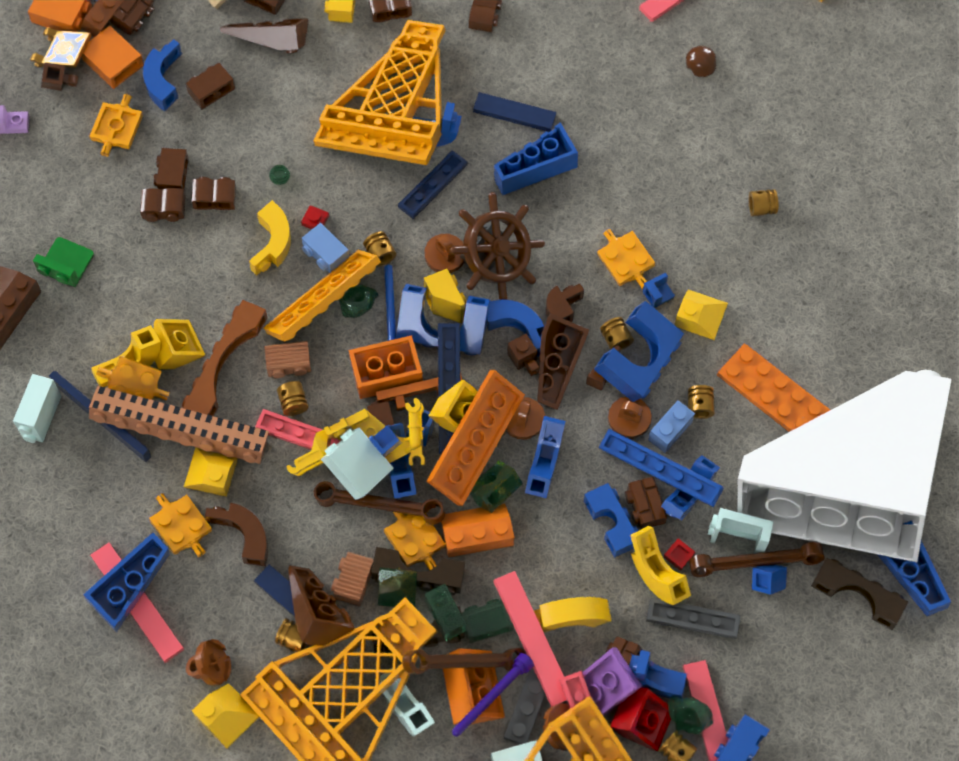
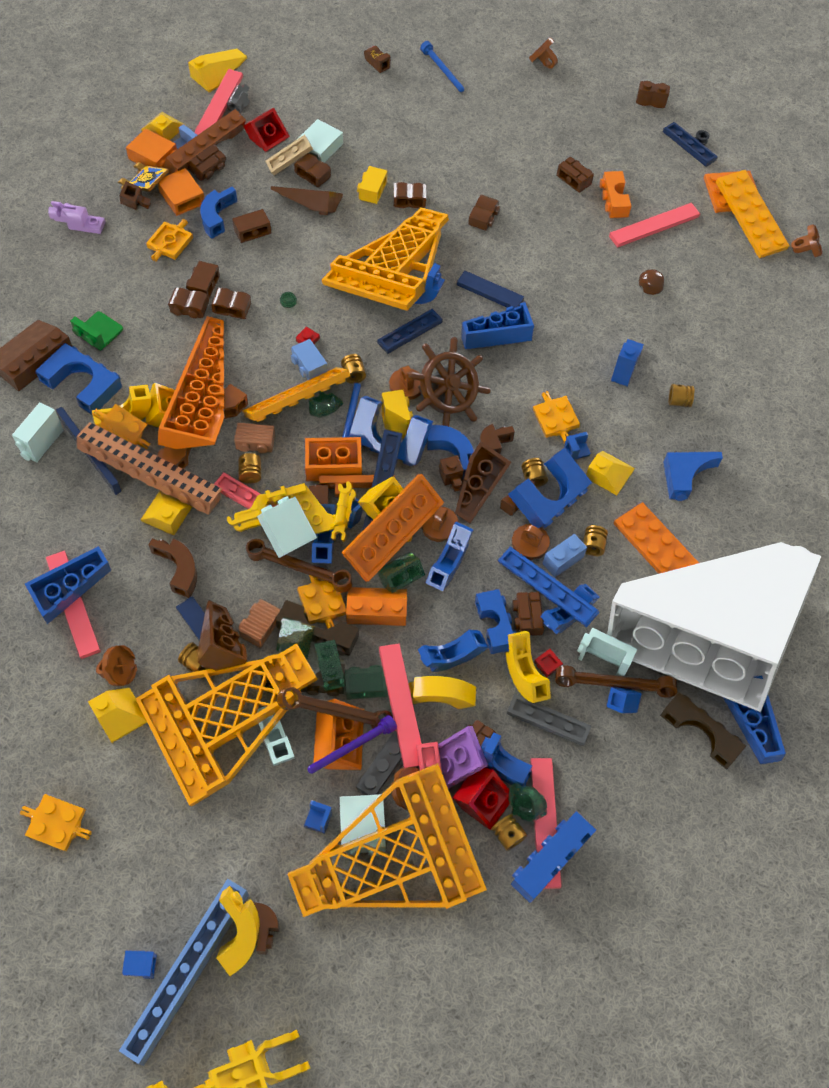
camera: 10 degrees right, 5 degrees down
(44, 308) = (69, 361): none -> blue arch
(180, 524) = (128, 549): light orange plate -> none
(215, 339) = (198, 400): none -> orange wedge
(277, 249) = (273, 348): yellow arch -> none
(385, 441) = (314, 513): blue panel -> none
(574, 566) = (453, 653): none -> blue arch
(694, 172) = (626, 362): none -> blue arch
(780, 295) = (683, 467): none -> blue arch

